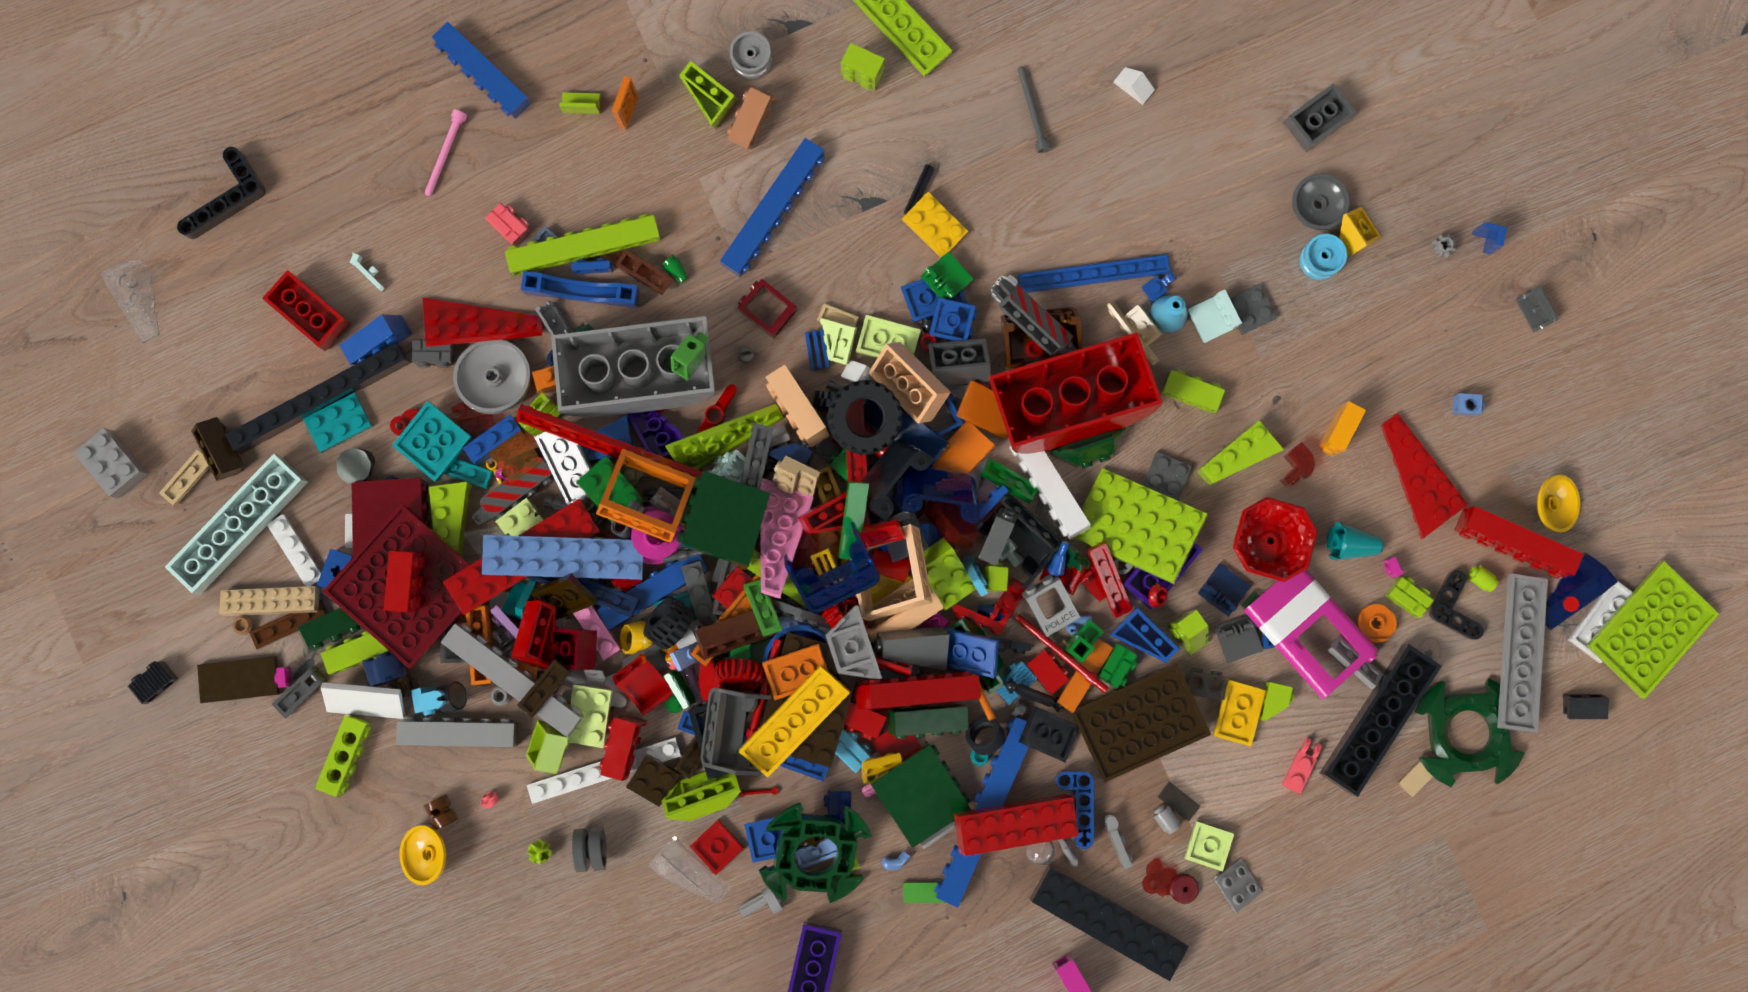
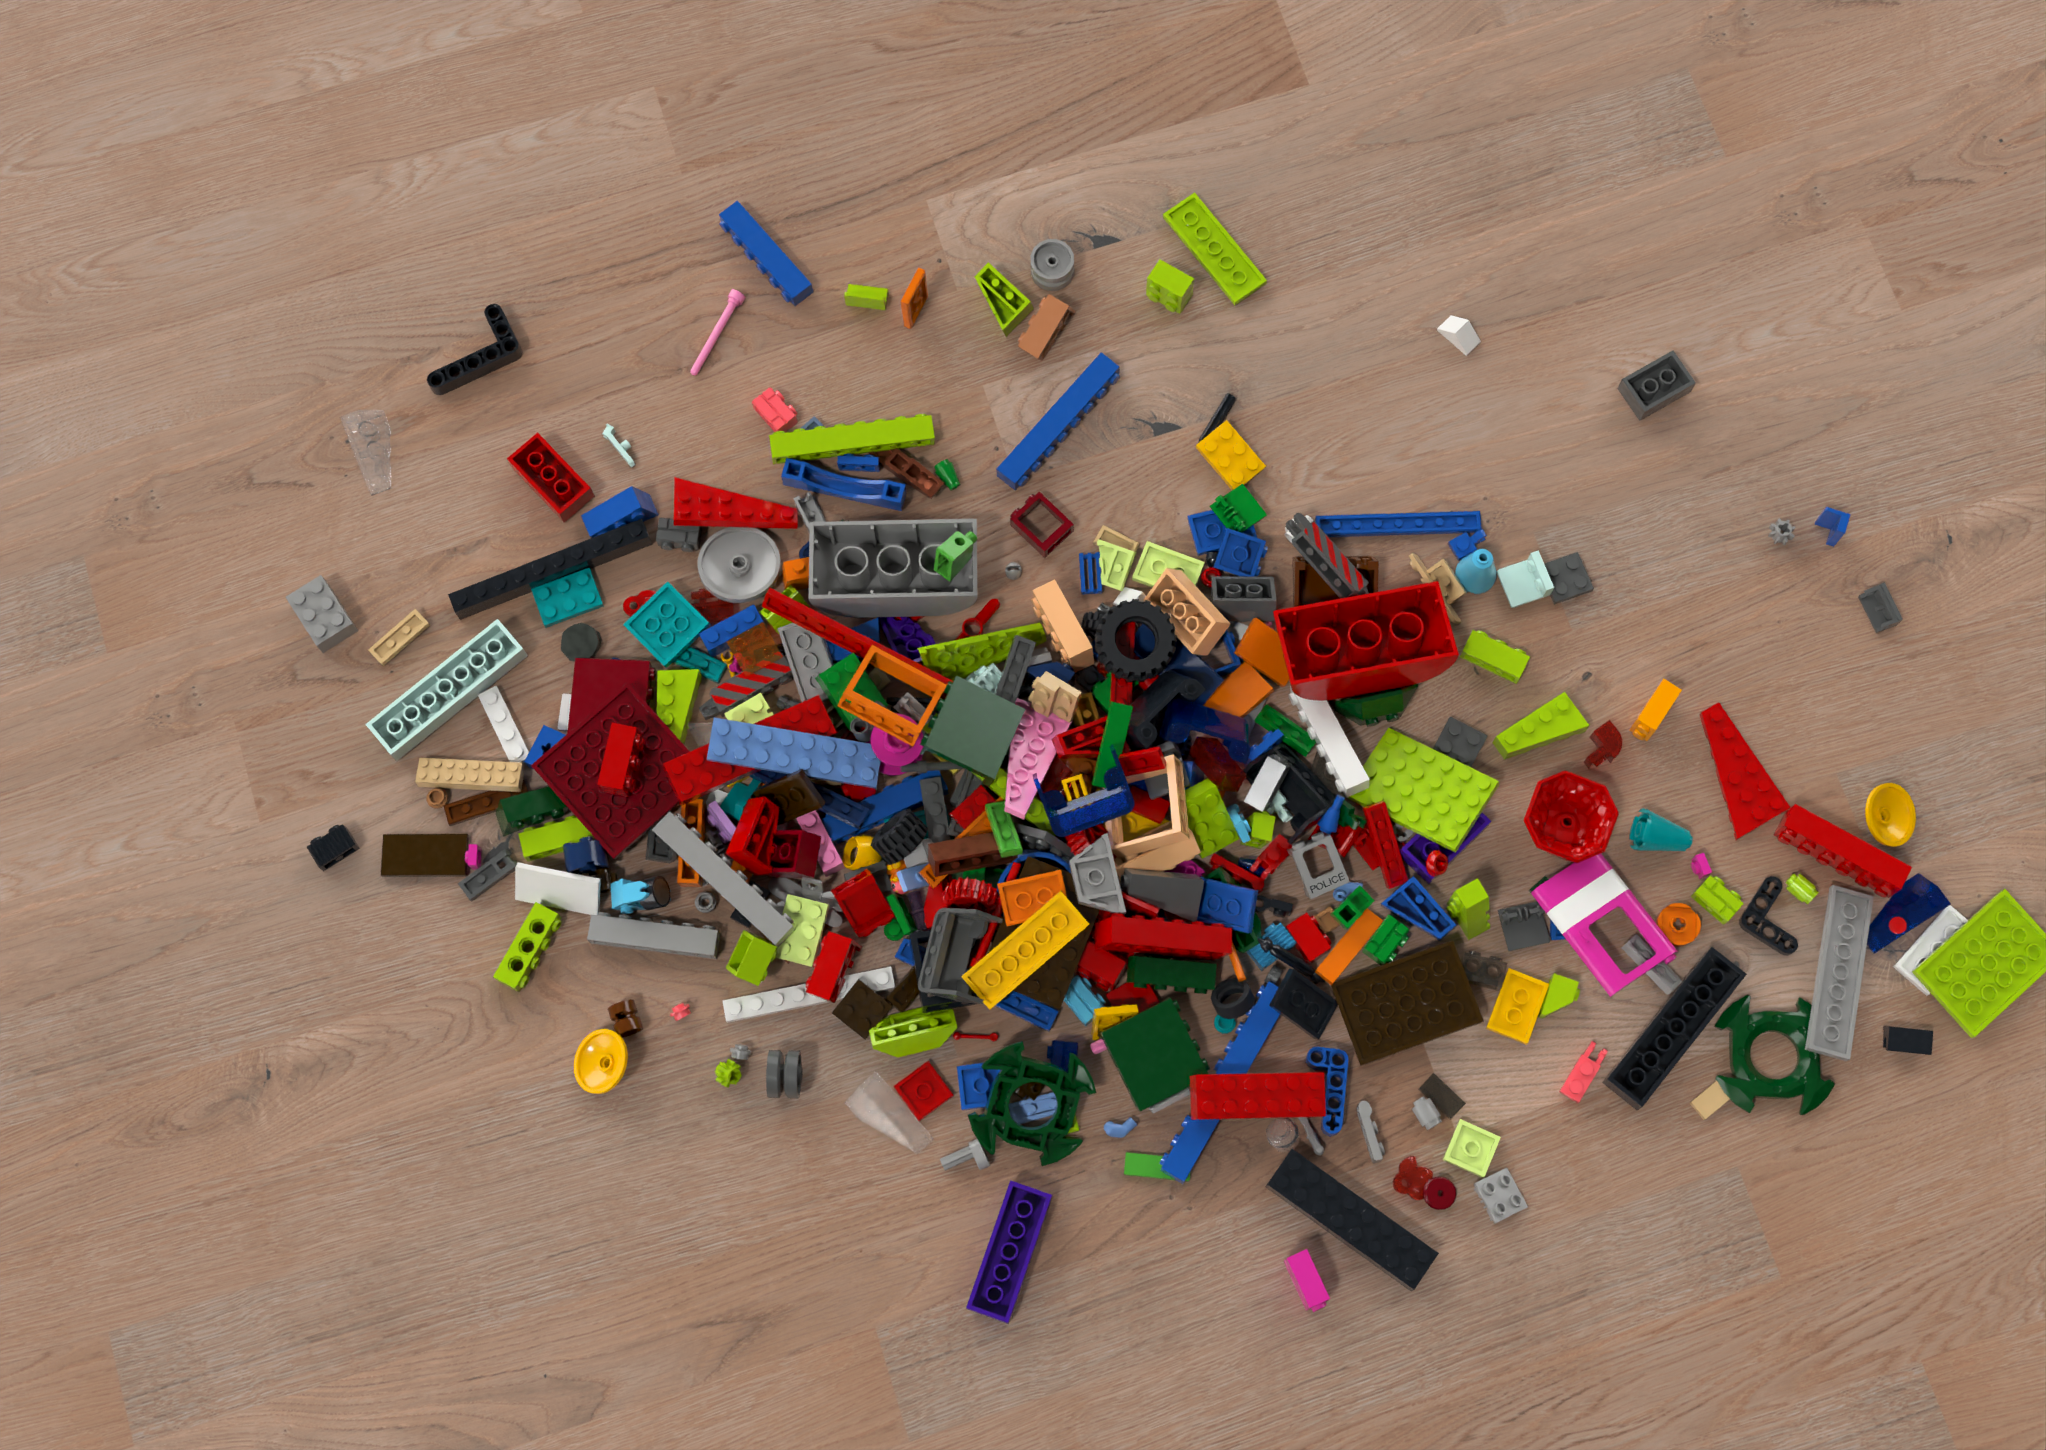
camera: 10 degrees right, 10 degrees down
(216, 448) = (436, 609): dark brown brick -> none
(543, 688) = (757, 889): dark brown tile -> none
(548, 830) = (740, 1052): none -> light grey plate
(1033, 350) = (1325, 593): red tile -> none
(1043, 145) = (1354, 385): dark grey piece -> none
(1090, 677) = (1354, 946): red bar -> none
(1224, 589) = (1512, 871): dark blue hinge -> none
(1323, 257) = (1648, 529): medium azure wheel -> none
(1328, 193) = (1654, 461): dark grey dish -> none
(1357, 231) = (1688, 508): yellow slope -> none
(1460, 407) = (1790, 706): medium blue brick -> none

